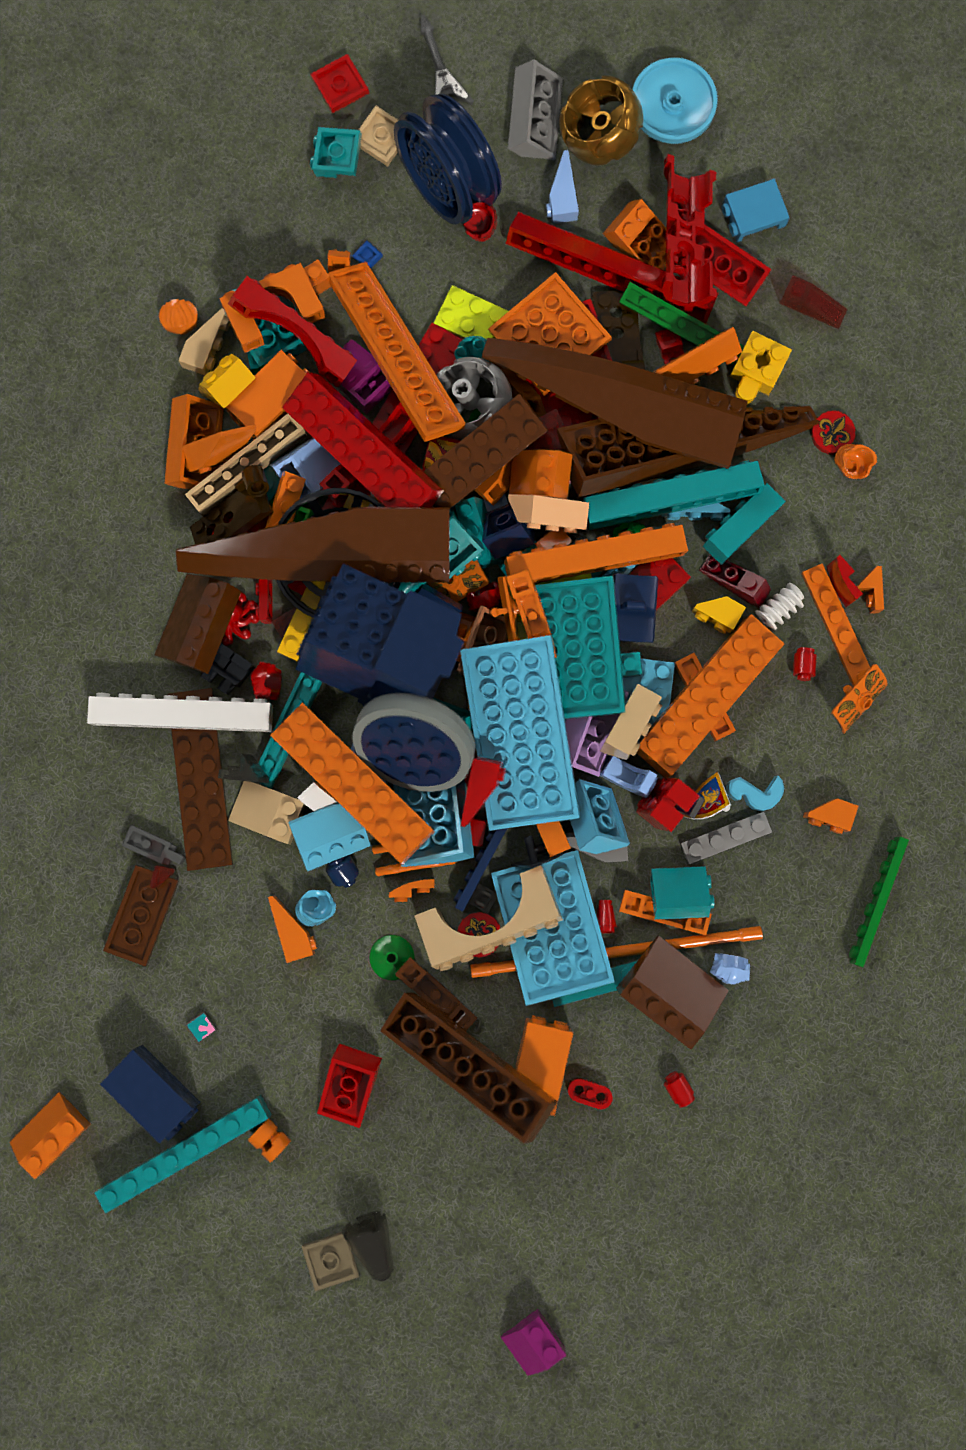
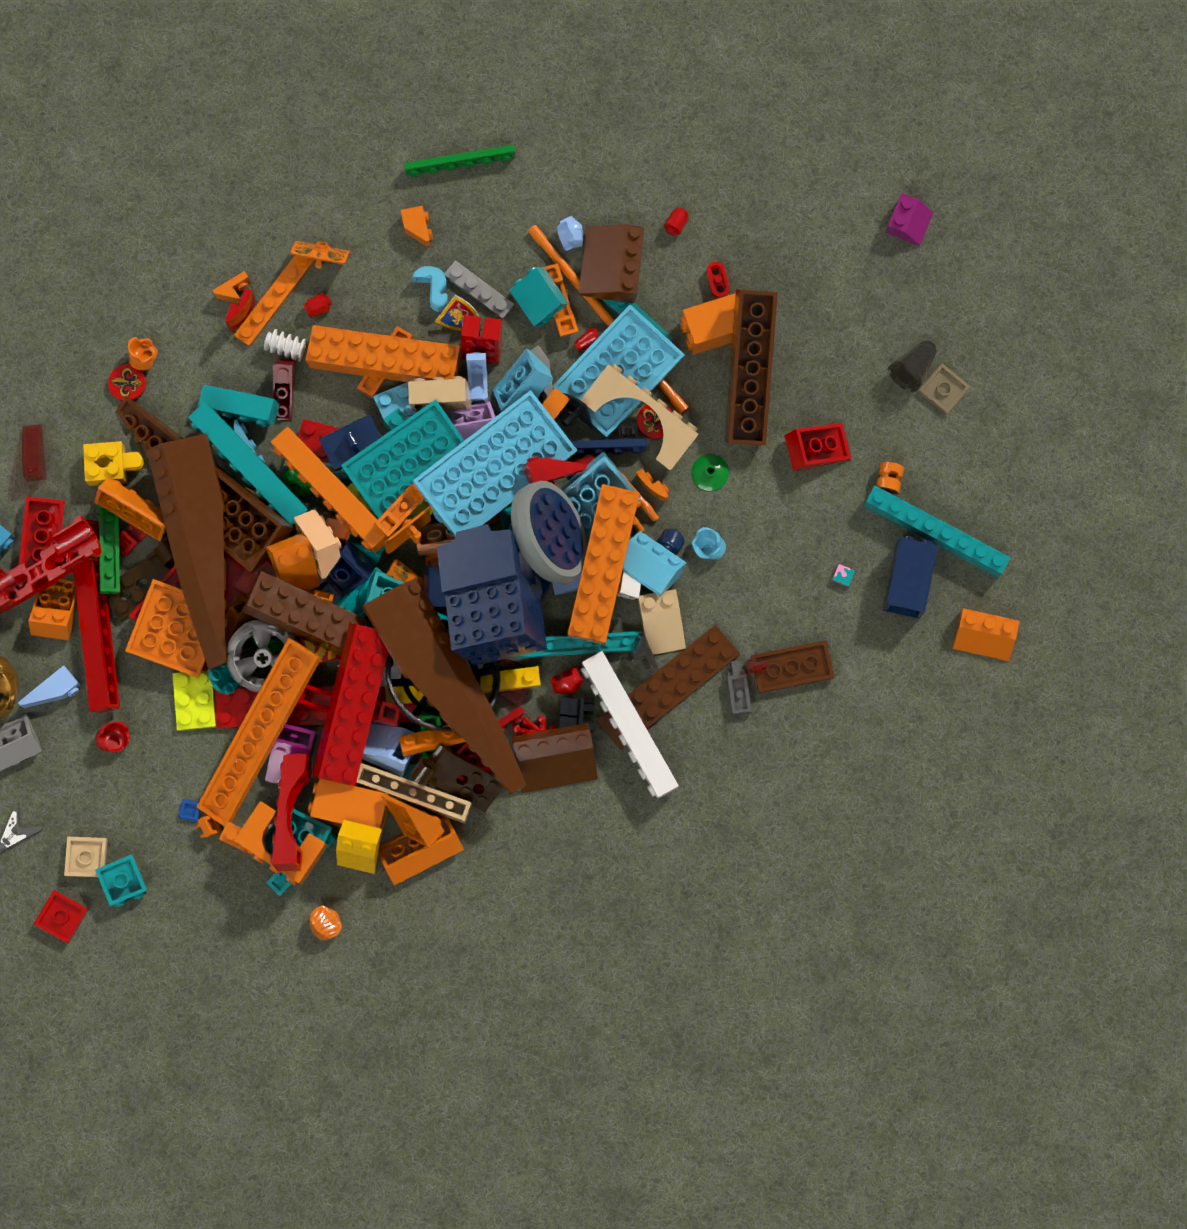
camera: 120 degrees left, 5 degrees down
(202, 345) = (340, 889): tan slope -> none
(292, 934) = (739, 547): orange slope -> none
(435, 993) = (716, 424): reddish brown slope -> none
(447, 158) = (85, 777): dark blue wheel -> none
(487, 596) = (408, 557): red hair -> none
(721, 612) = (314, 385): yellow slope -> none

